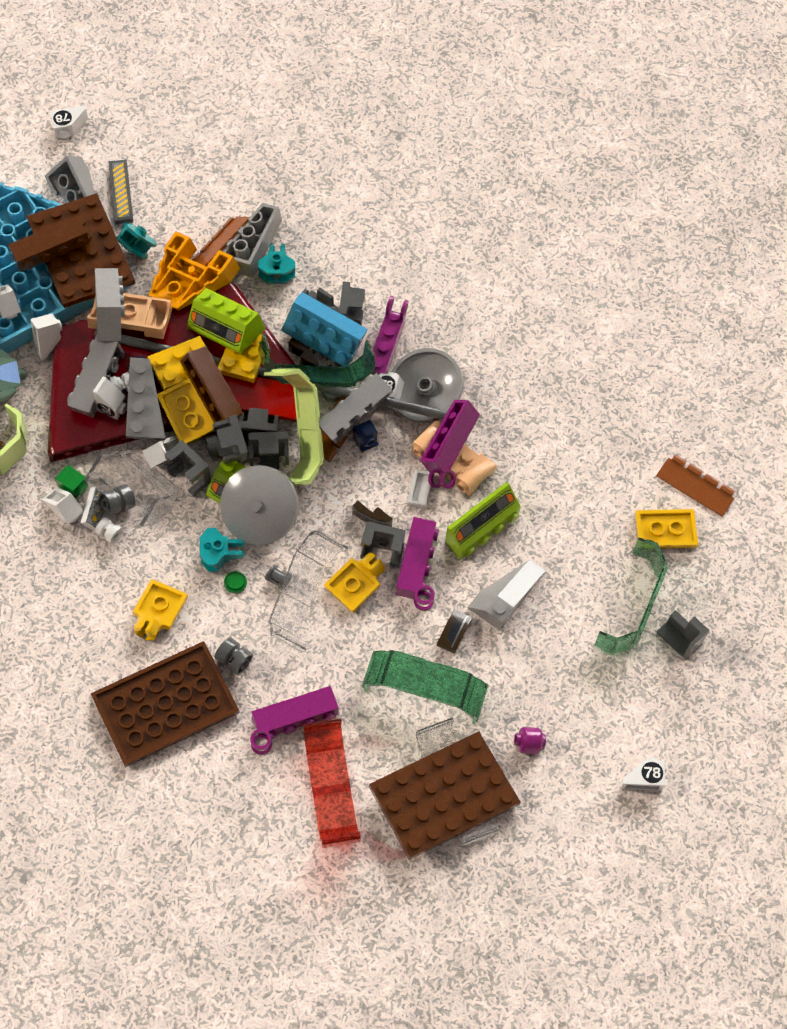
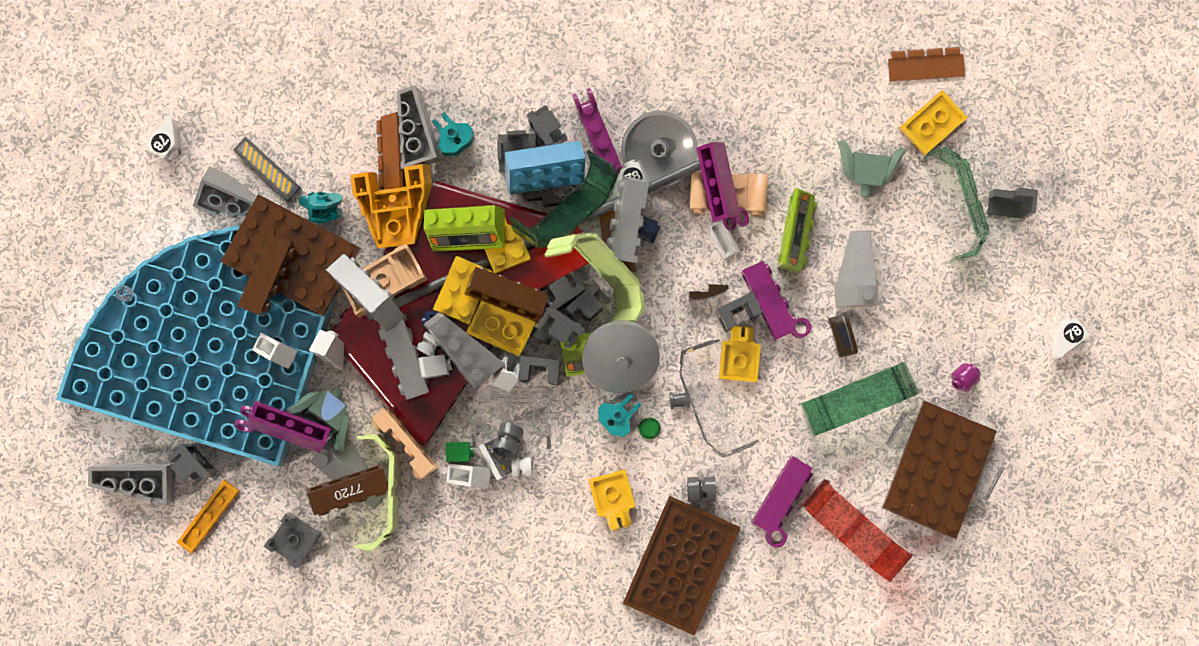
camera: 30 degrees left, 20 degrees up
(36, 459) = (385, 423): none -> light nougat piece
(584, 523) = (868, 169): none -> sand green torso

